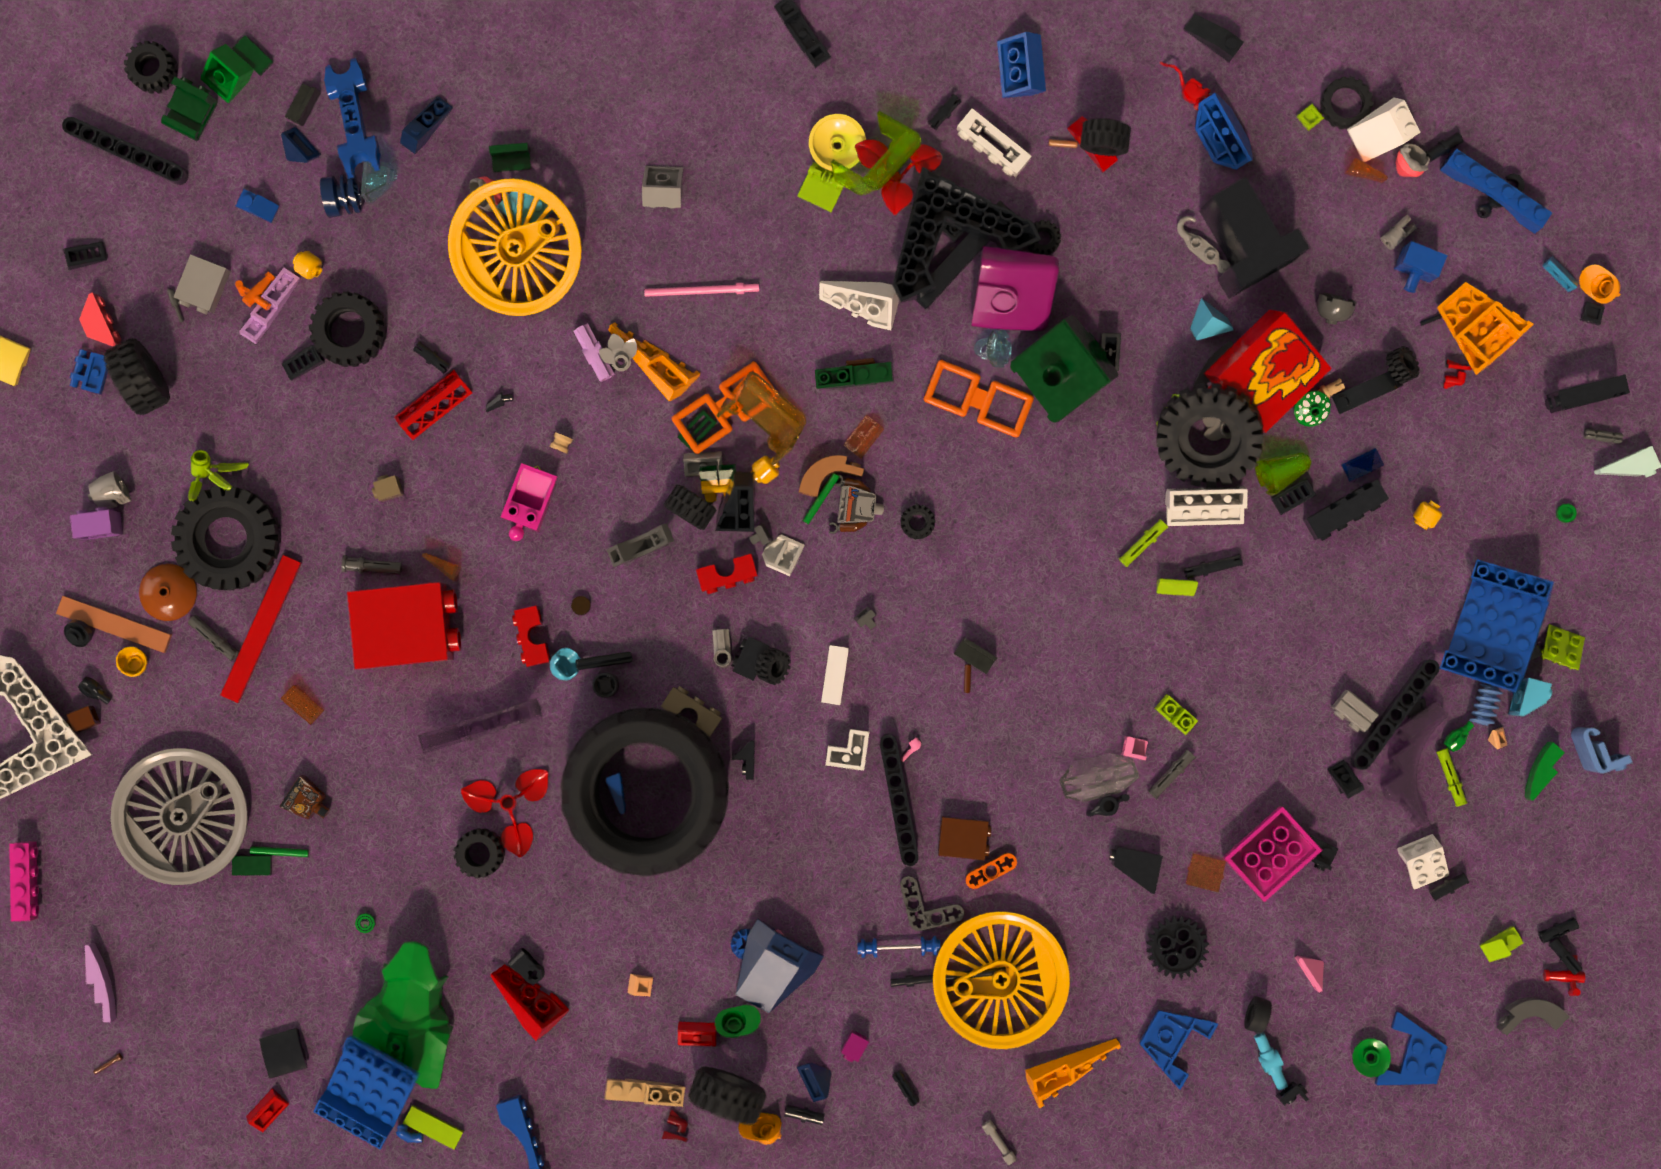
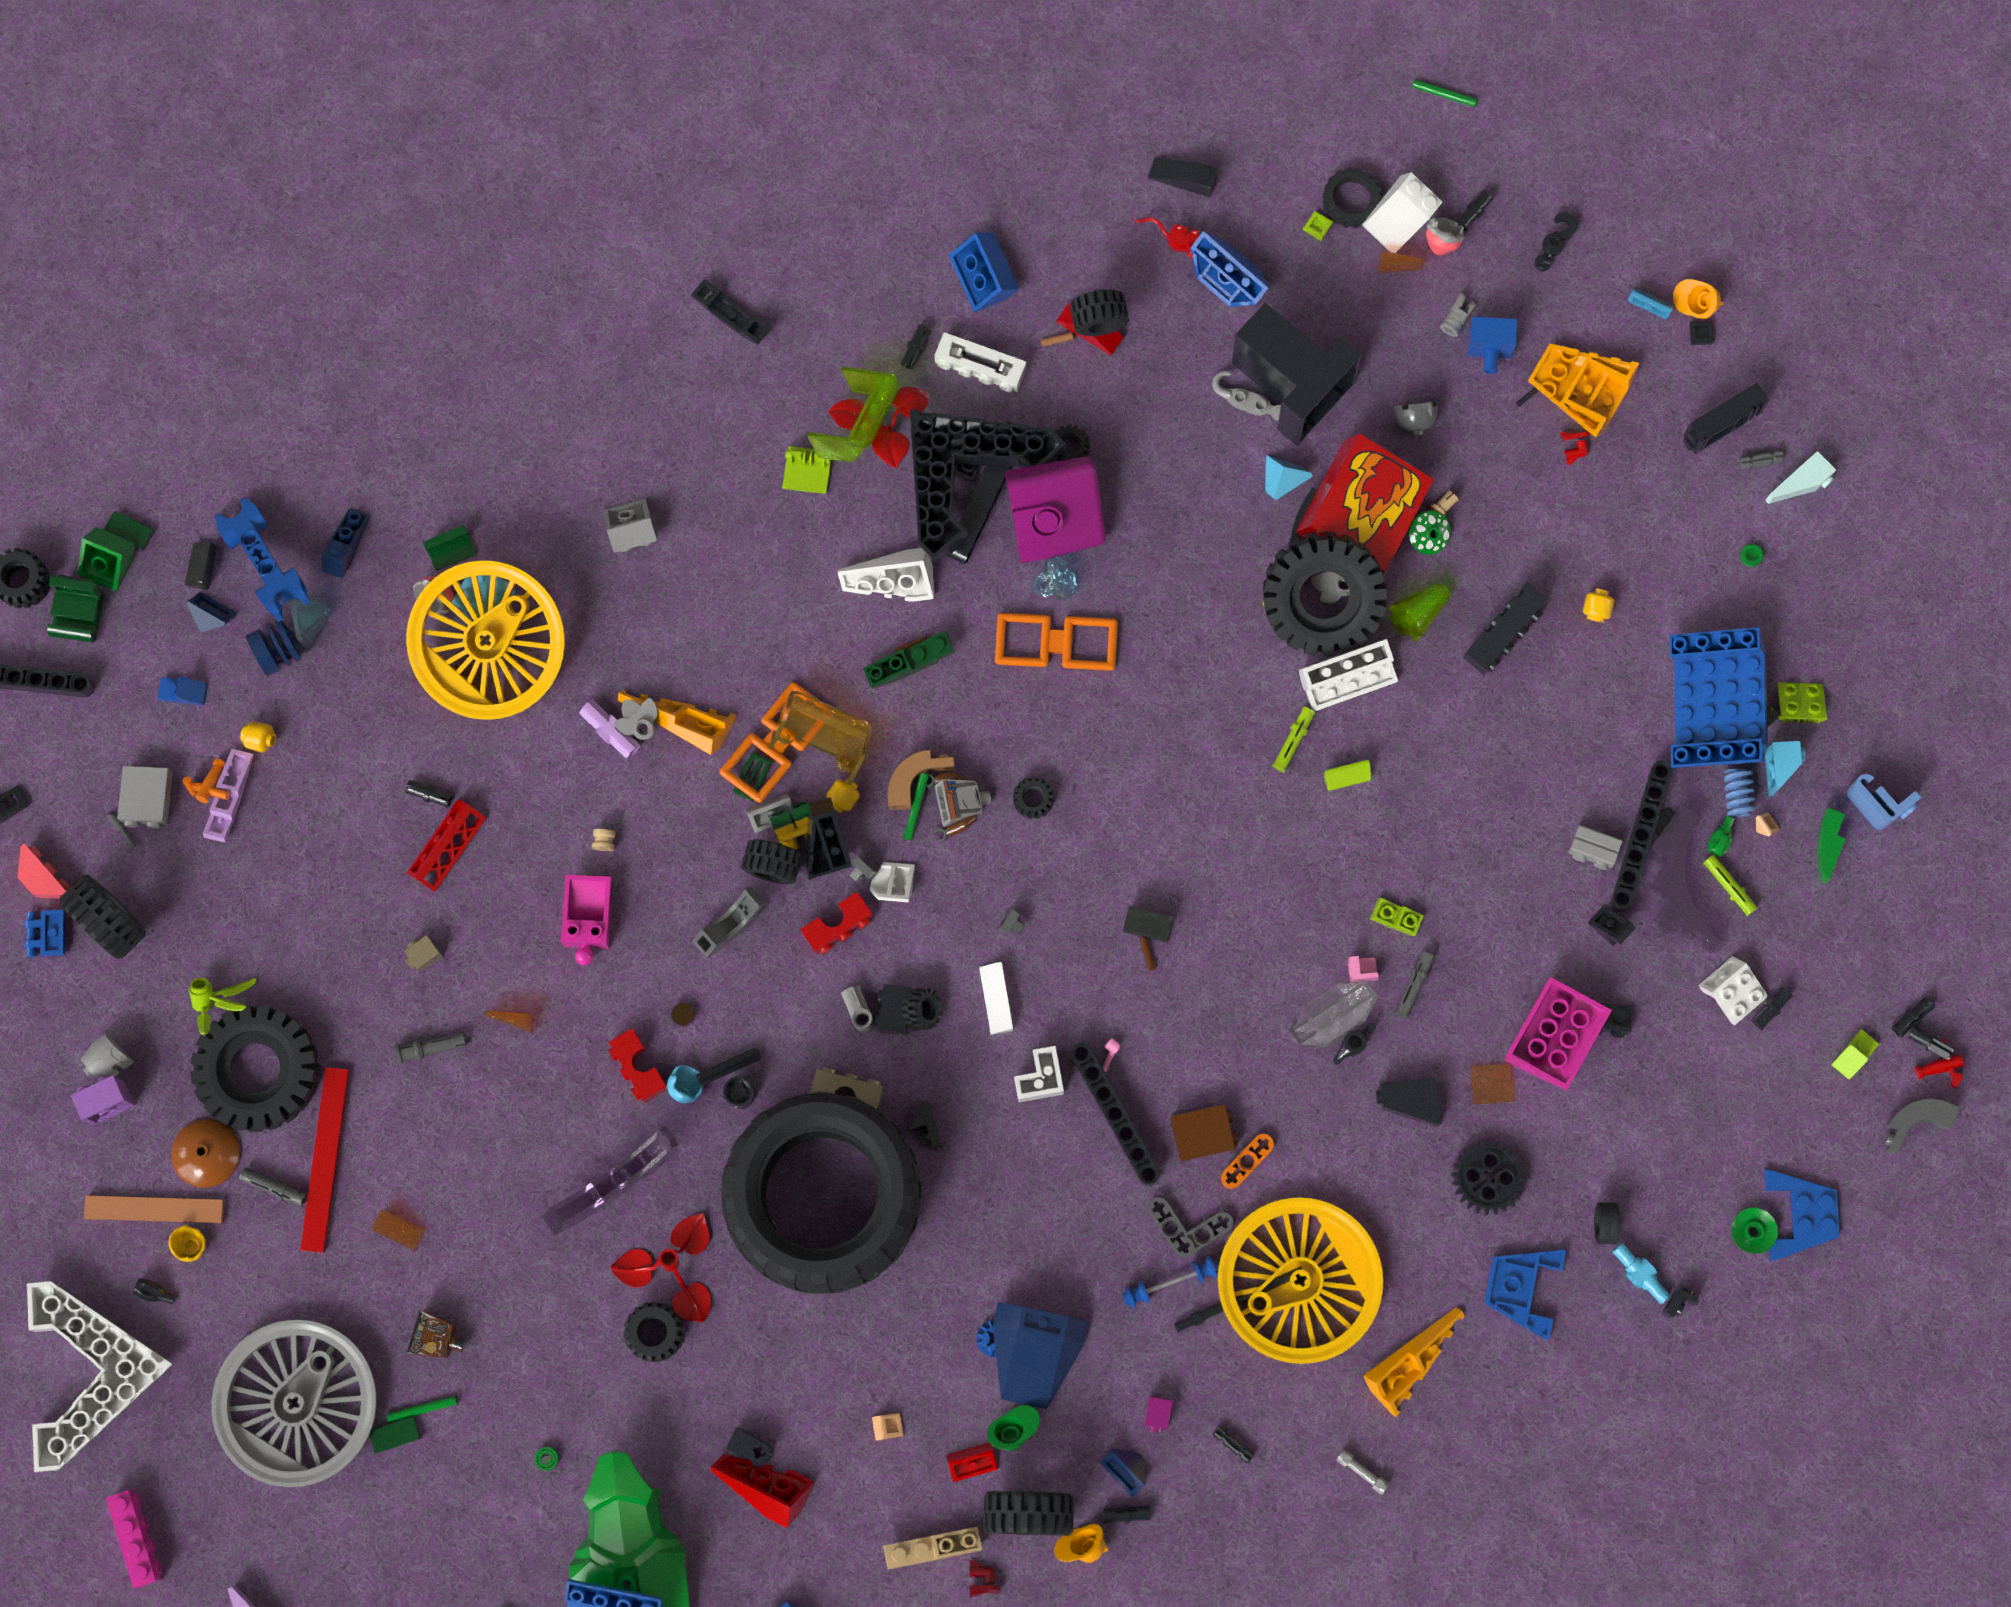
camera: 10 degrees left, 10 degrees down
(78, 633) = (116, 1231): black plate -> none
(83, 719) = (149, 1328): reddish brown brick -> none
(311, 365) = (289, 852): black slope -> none
(326, 315) = (340, 815): black tyre -> none
(403, 625) = (487, 1100): red brick -> none
(498, 401) = (519, 817): black bar -> none
(616, 788) = (787, 1202): blue slope -> none
(739, 288) = (749, 608): bright pink bar -> none
(832, 130) = (802, 403): light yellow dish -> none
(863, 436) = (942, 724): clear orange slope -> none
(1064, 368) = (1139, 575): dark green piece -> none
(1111, 345) = (1183, 542): black slope -> none
(1213, 566) = (1372, 744): black pin -> none
(1307, 487) = (1455, 619): black slope -> none
(1313, 970) = (1652, 1153): bright pink slope -> none
(1362, 464) = (1507, 576): clear blue slope -> none
(1365, 392) = (1483, 492): black arch -> none
(1402, 364) = (1512, 452): black tyre -> none
(1454, 37) = (1448, 94): none -> green bar
(1523, 208) = (1583, 245): blue arch -> none

